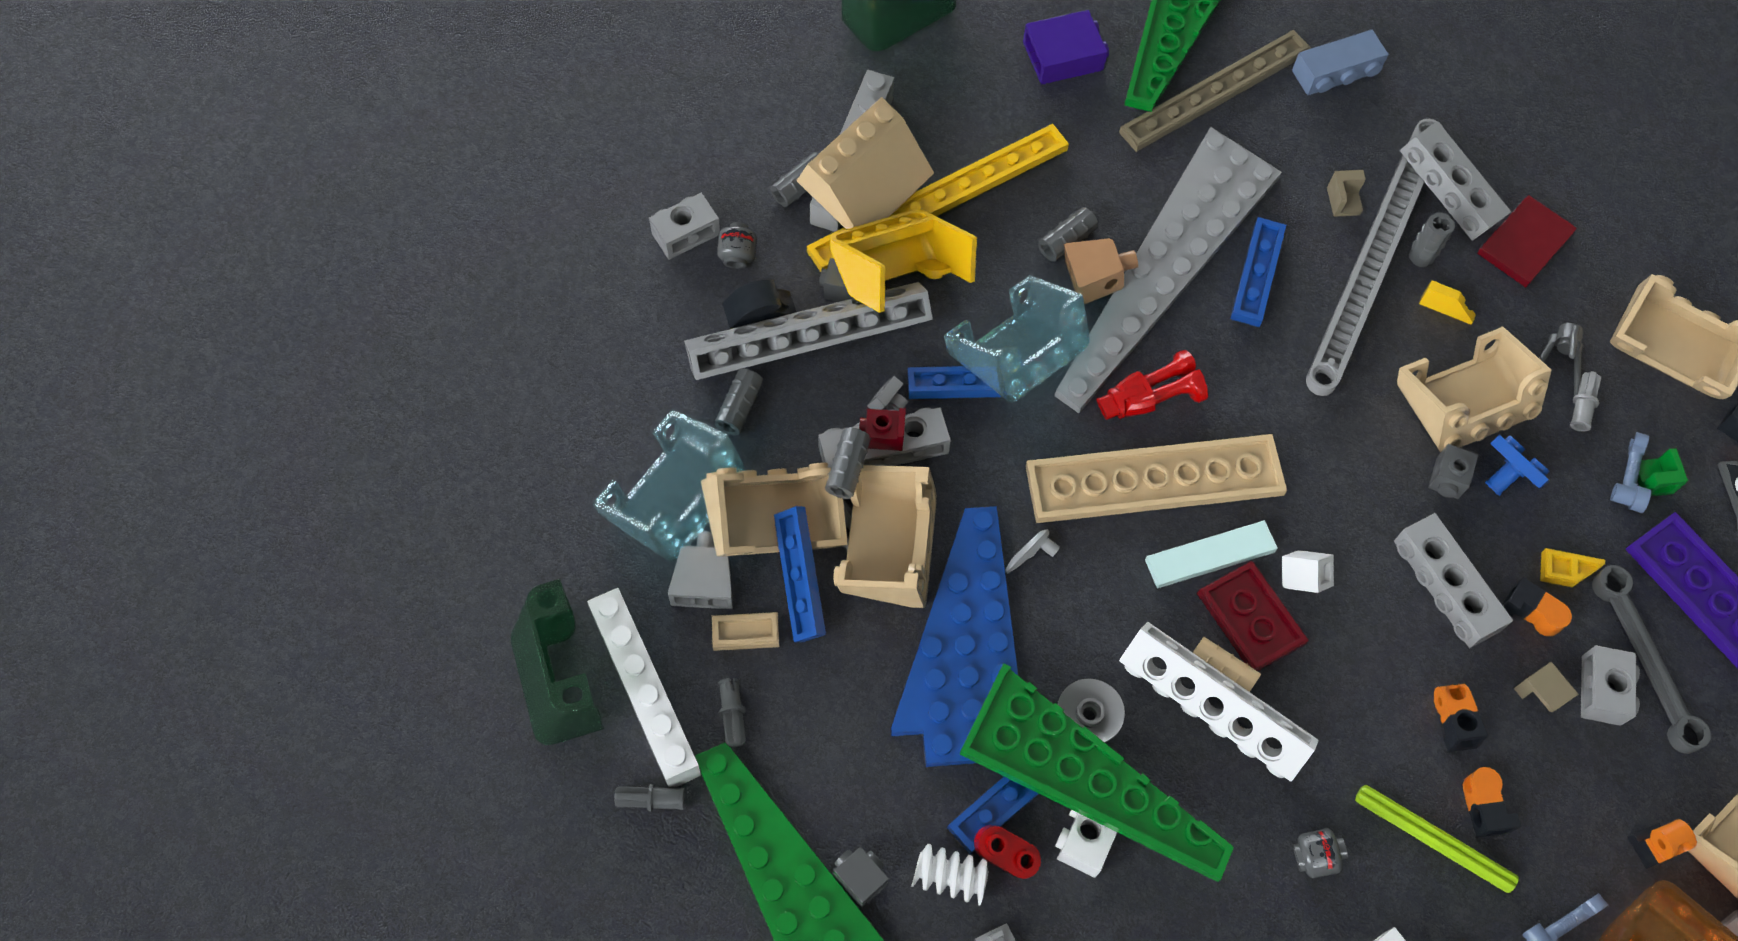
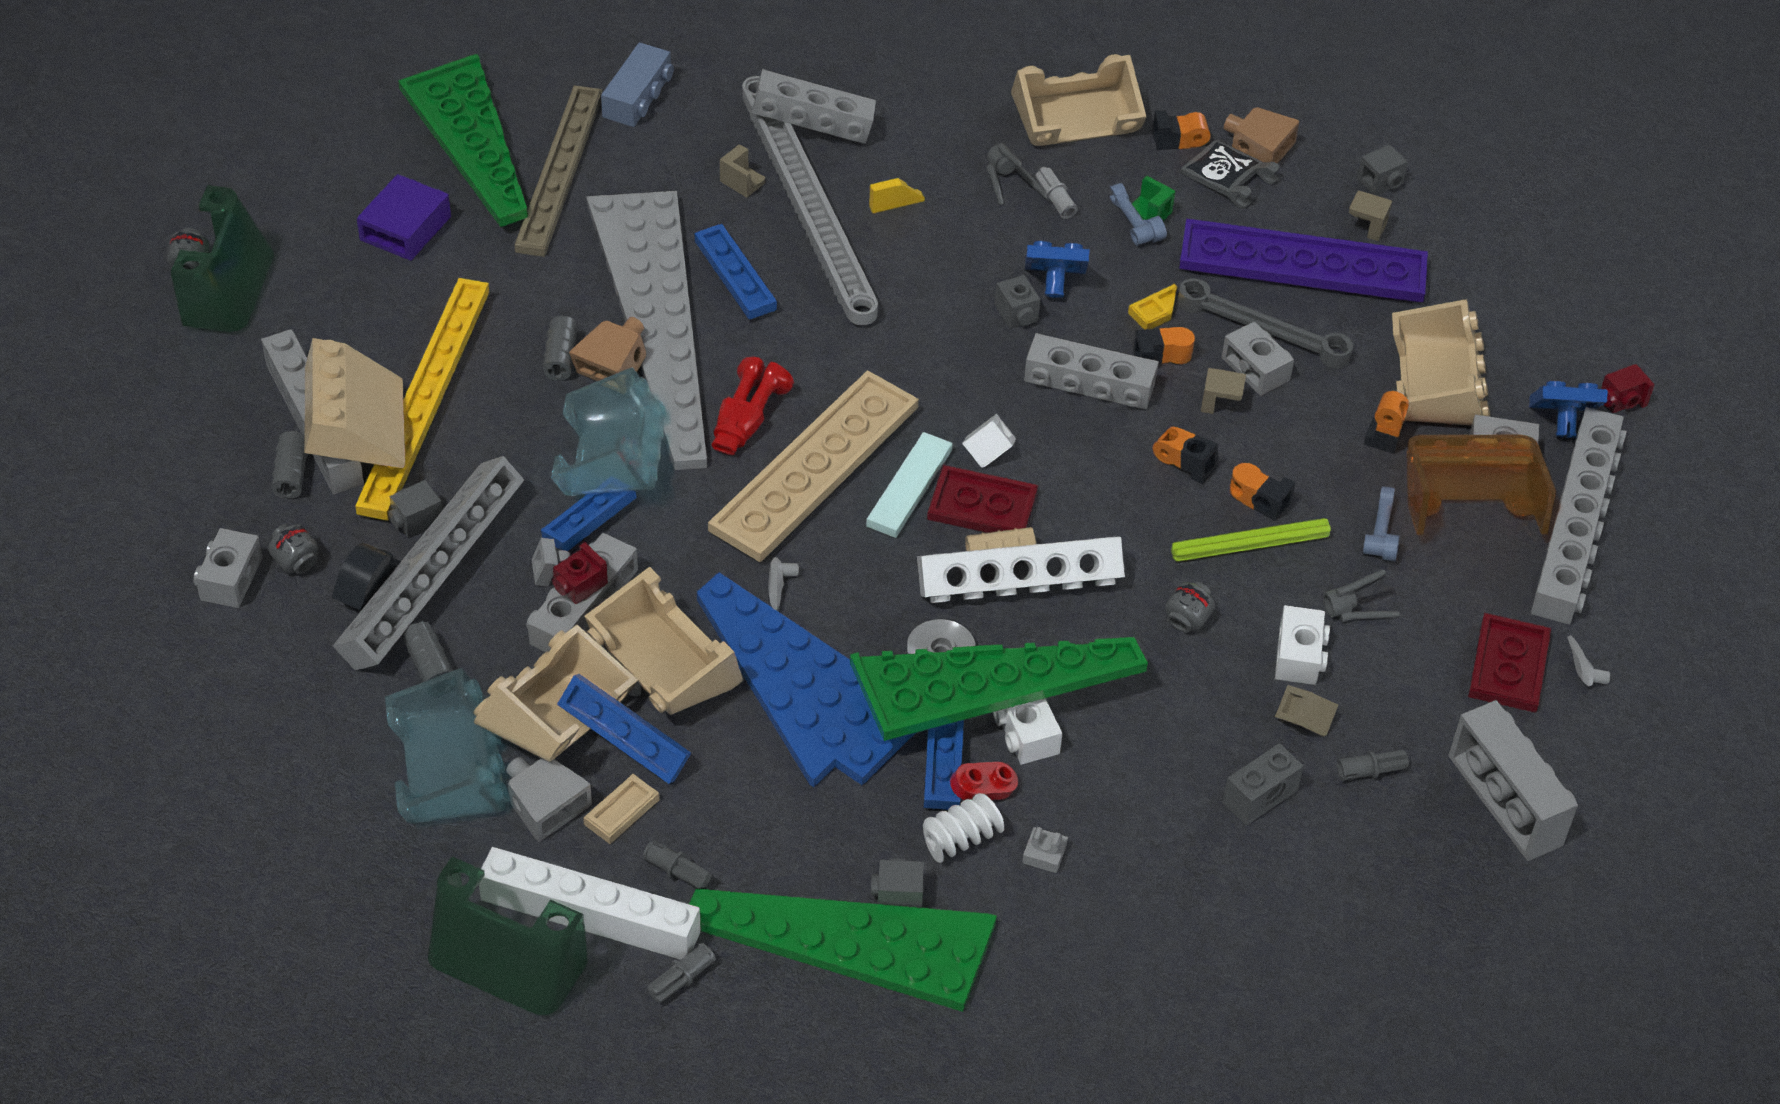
camera: 45 degrees left, 15 degrees down
(847, 463) = (583, 611): dark grey axle -> none
(899, 246) = (444, 441): yellow windscreen -> none
(1431, 239) = (840, 157): dark grey axle -> none
(1480, 395) = (982, 237): tan windscreen -> none
(1526, 241) = (904, 116): dark red tile -> none

